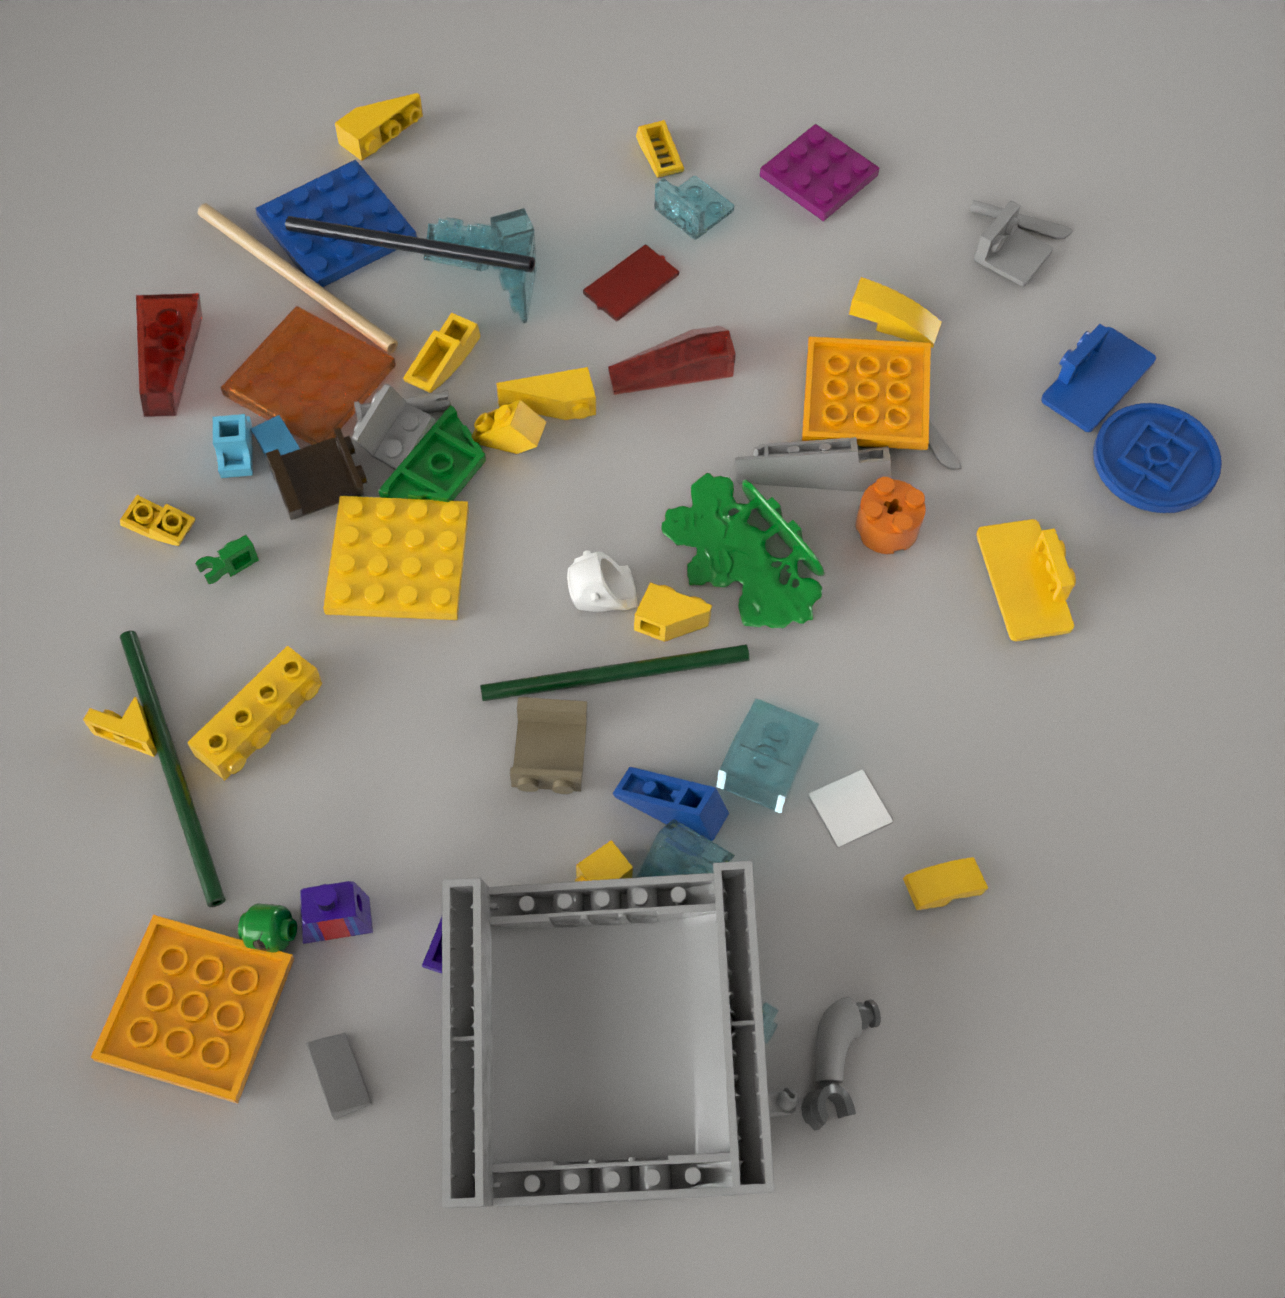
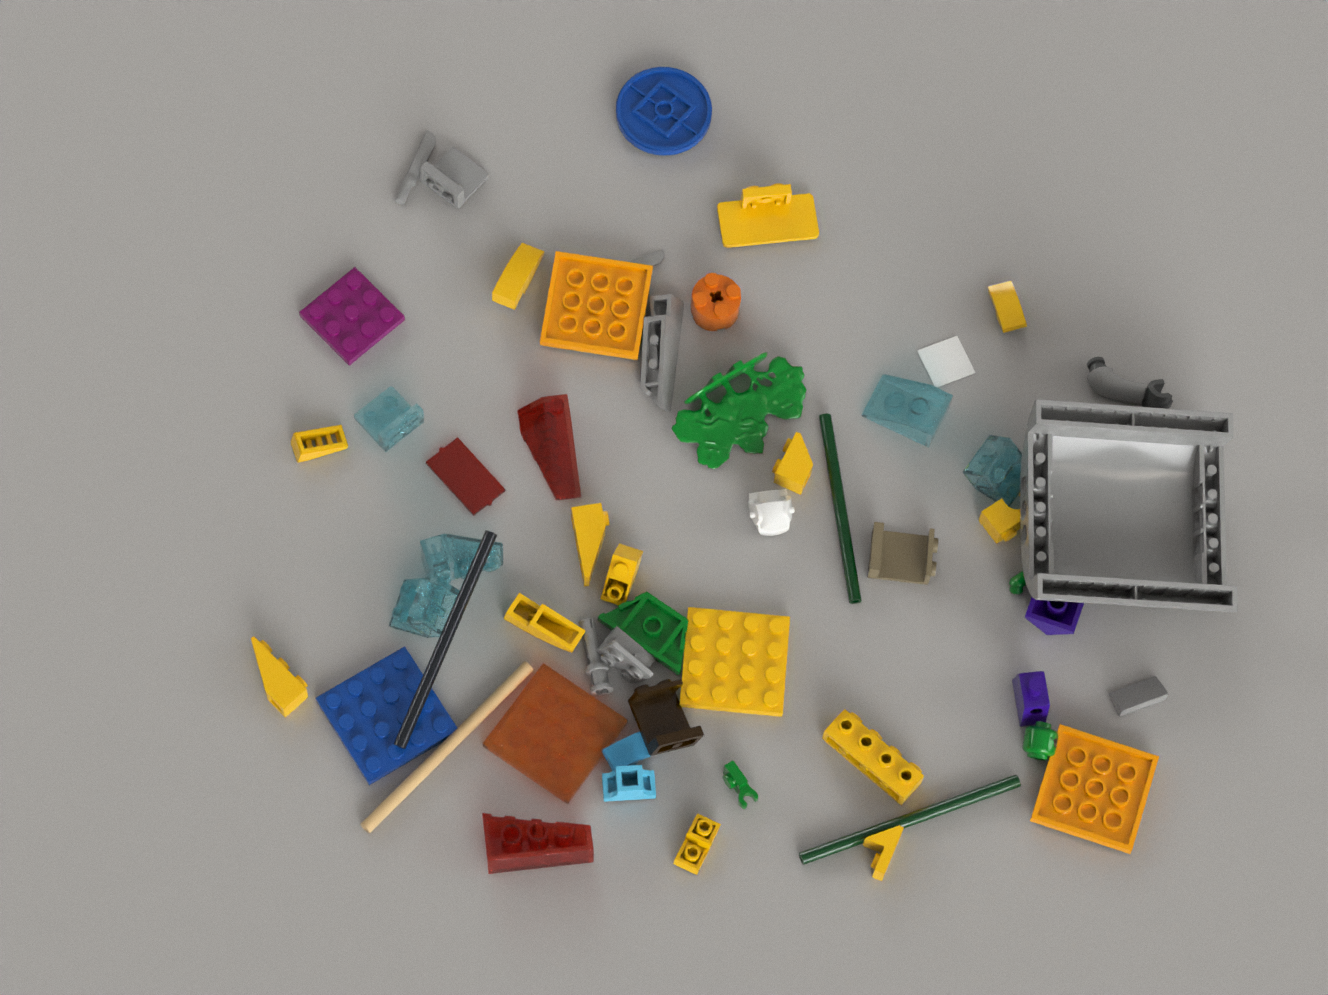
camera: 90 degrees left, 5 degrees up
(674, 798) = (945, 474): blue slope -> none
(1096, 376) = (586, 137): blue bracket -> none

